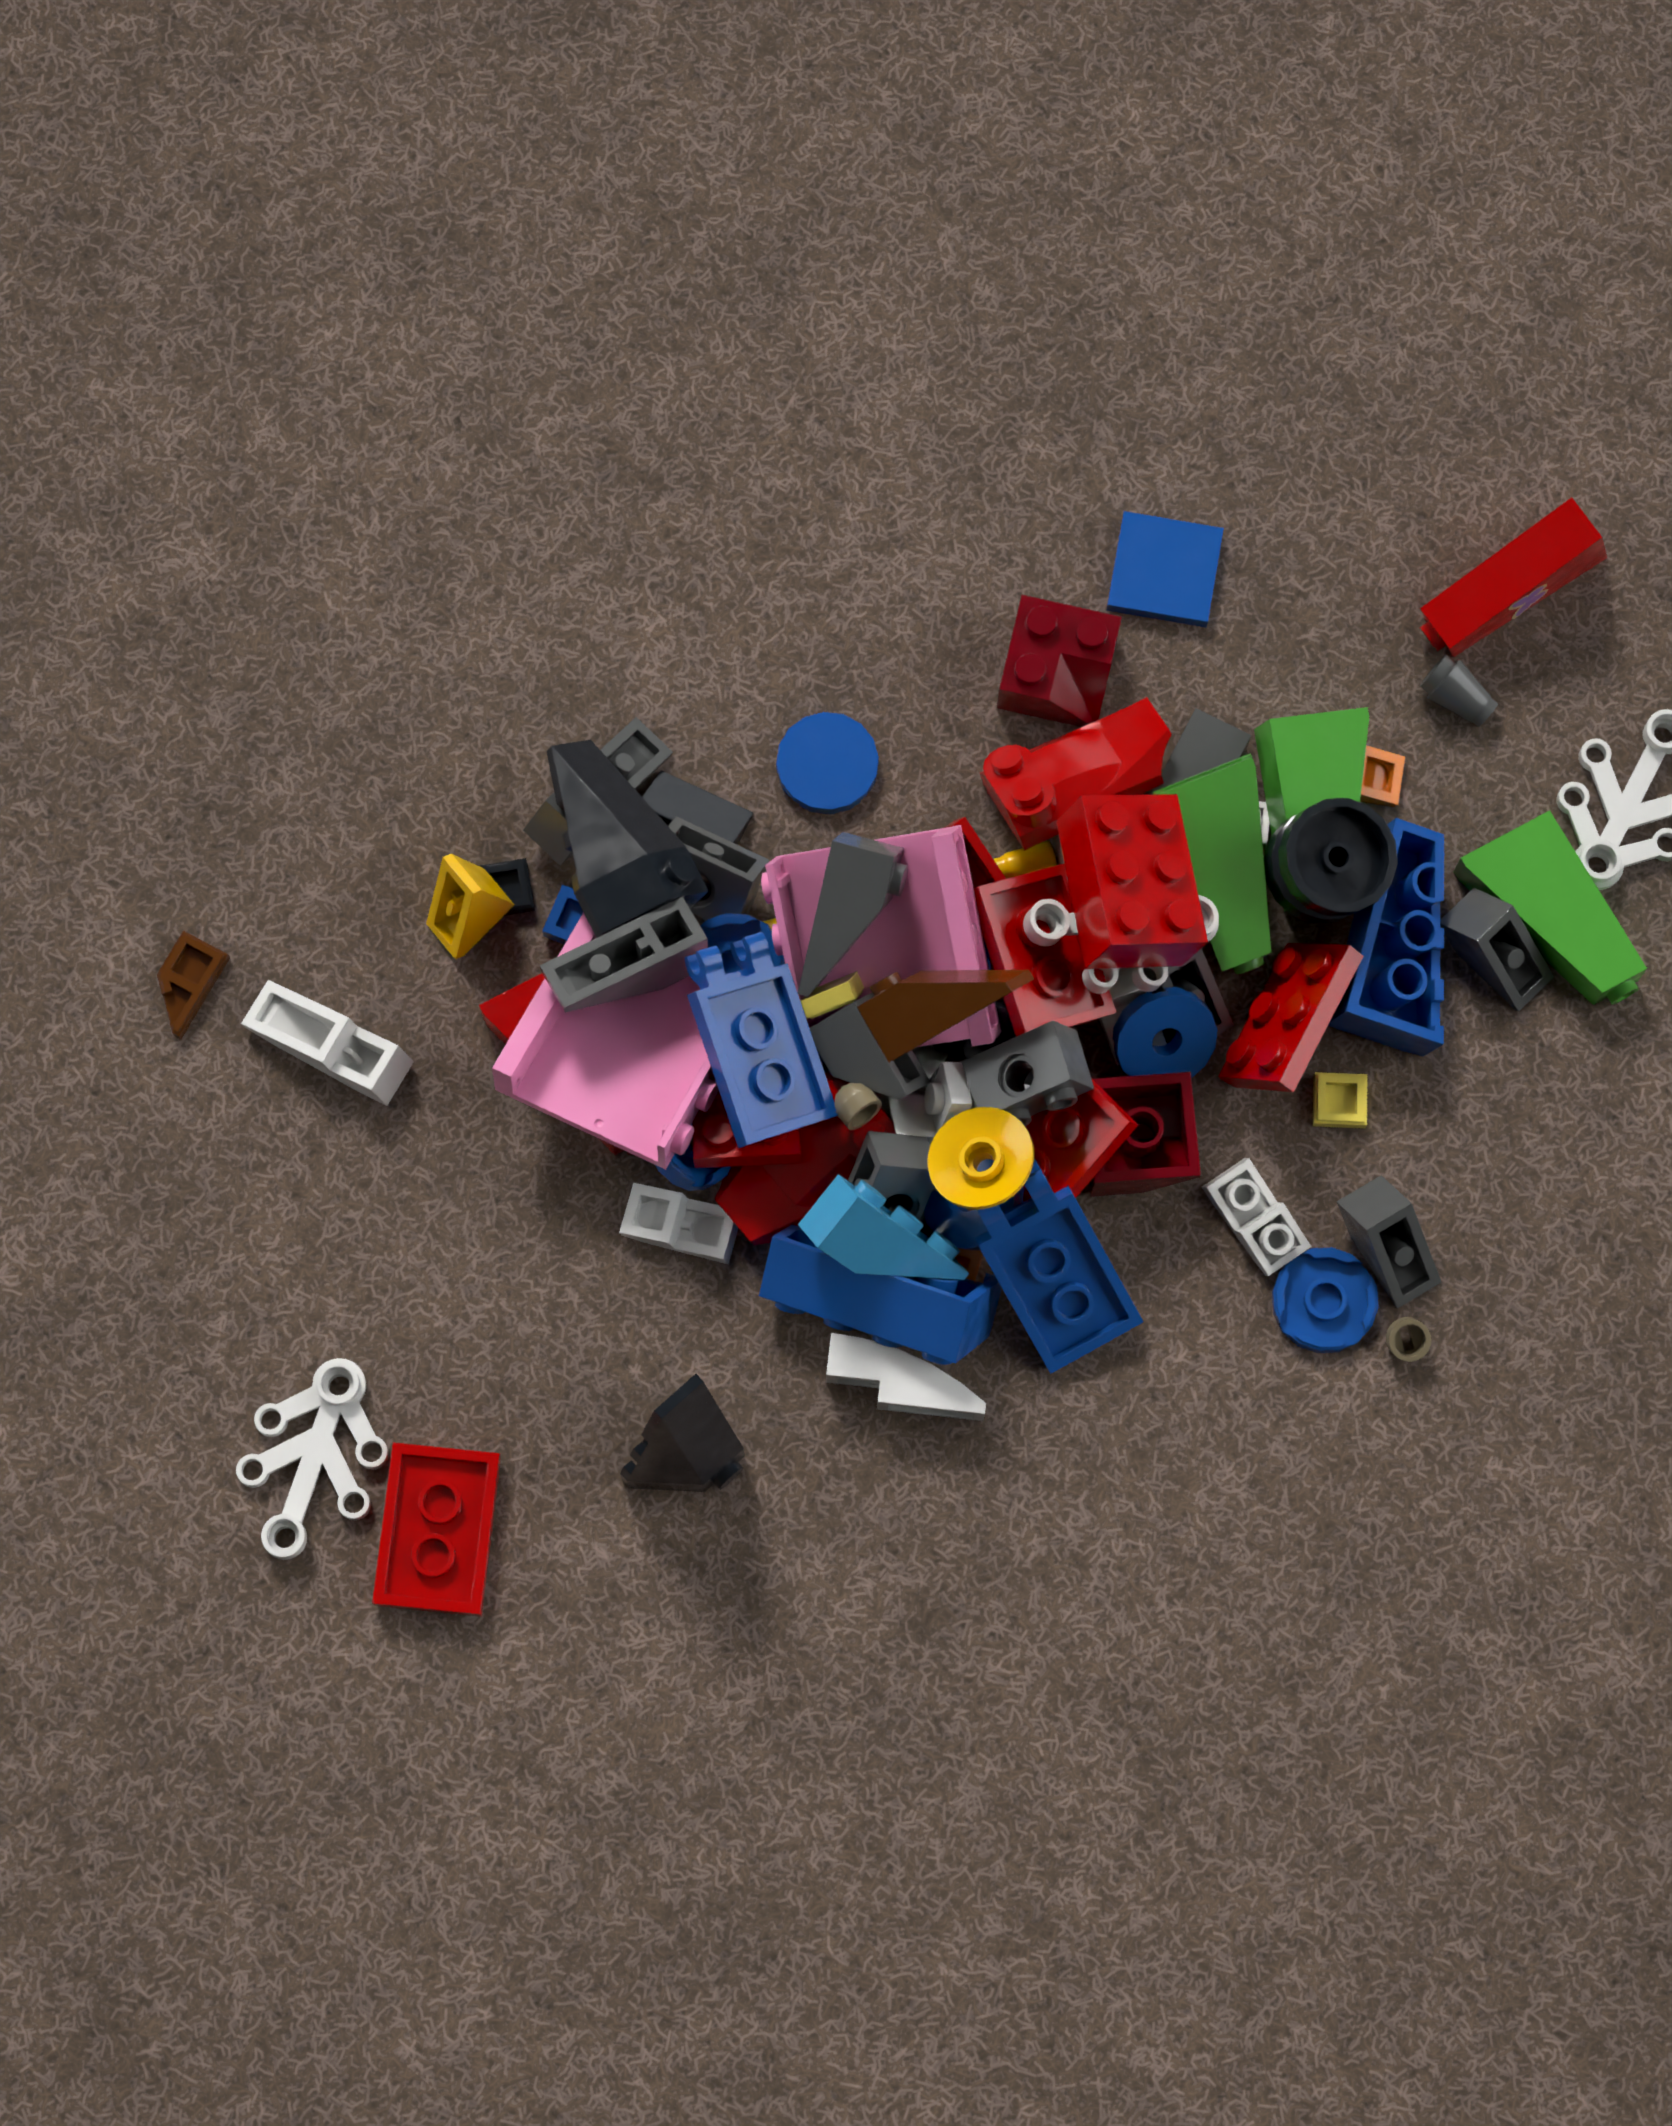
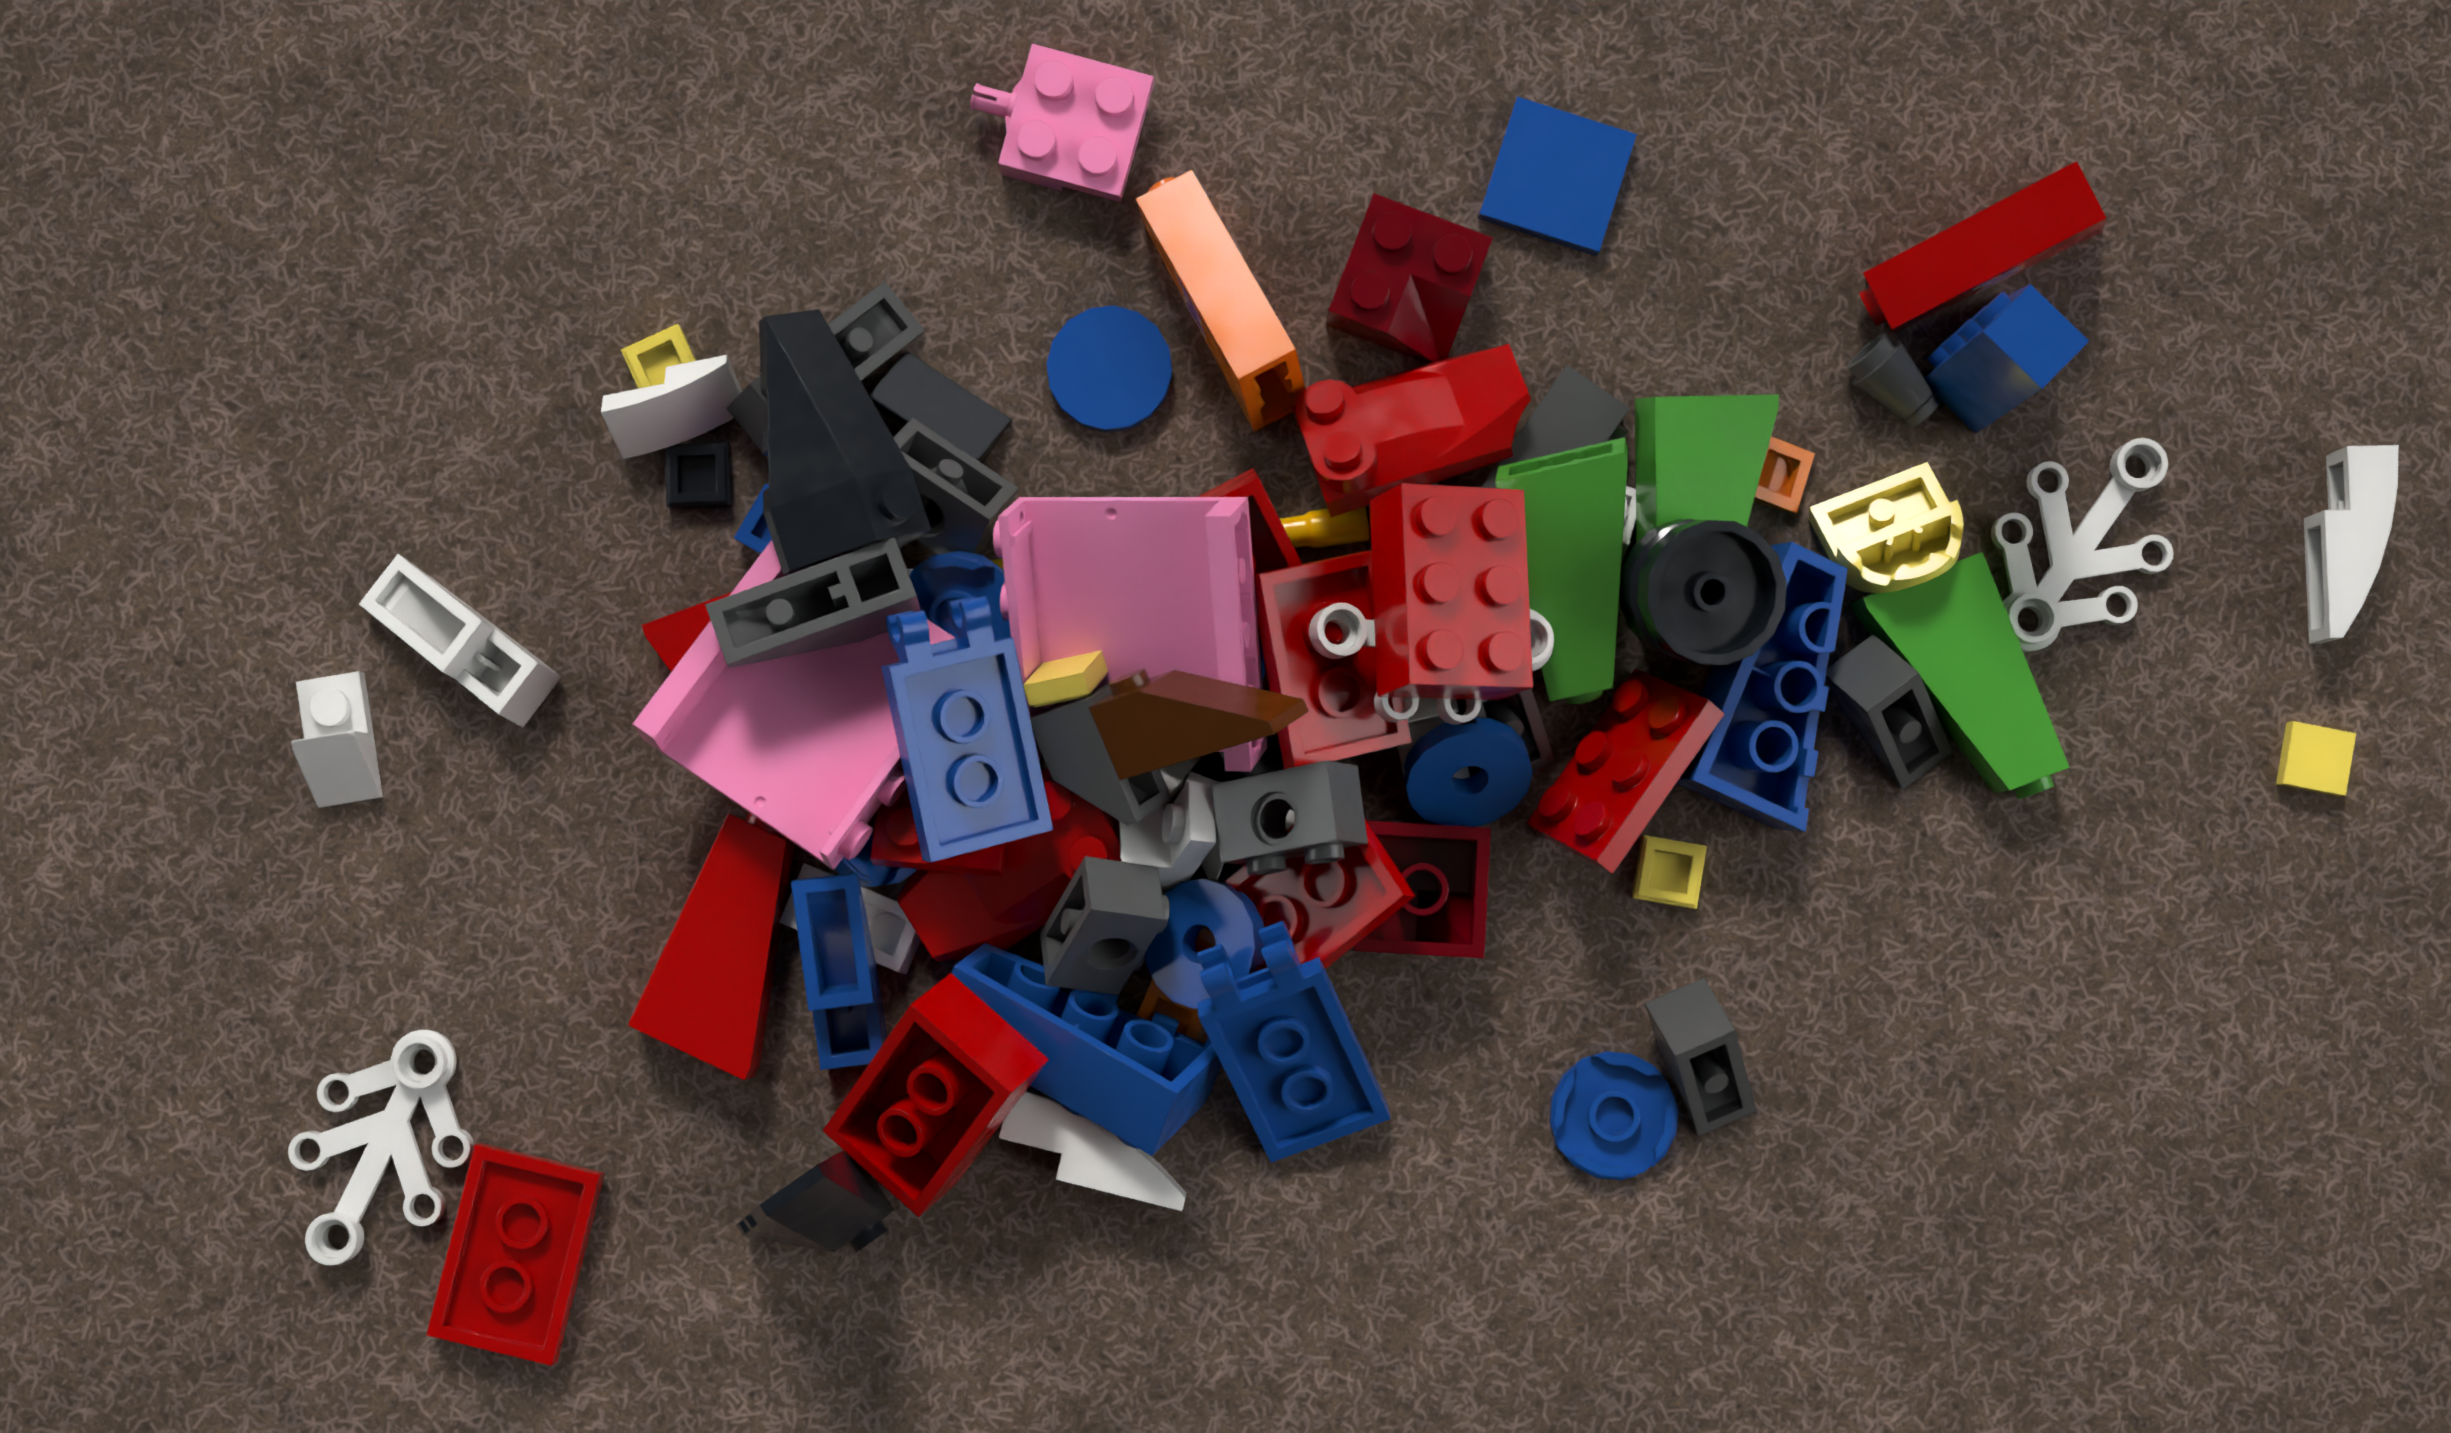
camera: 10 degrees right, 10 degrees up
(188, 979) = (304, 539): reddish brown tile -> none
(236, 1135) = (338, 740): none -> white slope
(464, 905) = (645, 492): yellow slope -> none
(465, 806) = (653, 354): none -> light yellow tile
(486, 833) = (672, 412): none -> white slope
(575, 1265) = (722, 953): none -> red slope
(677, 1257) = (839, 969): none -> blue slope
(769, 574) = (1070, 122): none -> bright pink plate
(772, 1340) = (934, 1094): none -> red brick
(854, 891) = (1105, 561): dark grey slope -> none
(856, 1105) = (1075, 821): dark tan hinge -> none
(871, 1239) = (1071, 992): dark azure slope -> none
(914, 695) = (1223, 298): none -> slope
(966, 1142) = (1191, 898): yellow dish -> none
(1256, 1217) = (1546, 1002): white slope -> none
(1419, 1337) = (1718, 1175): dark tan hinge -> none
(1475, 805) = (1891, 531): none -> light yellow slope
(1538, 651) = (2002, 356): none -> blue wedge

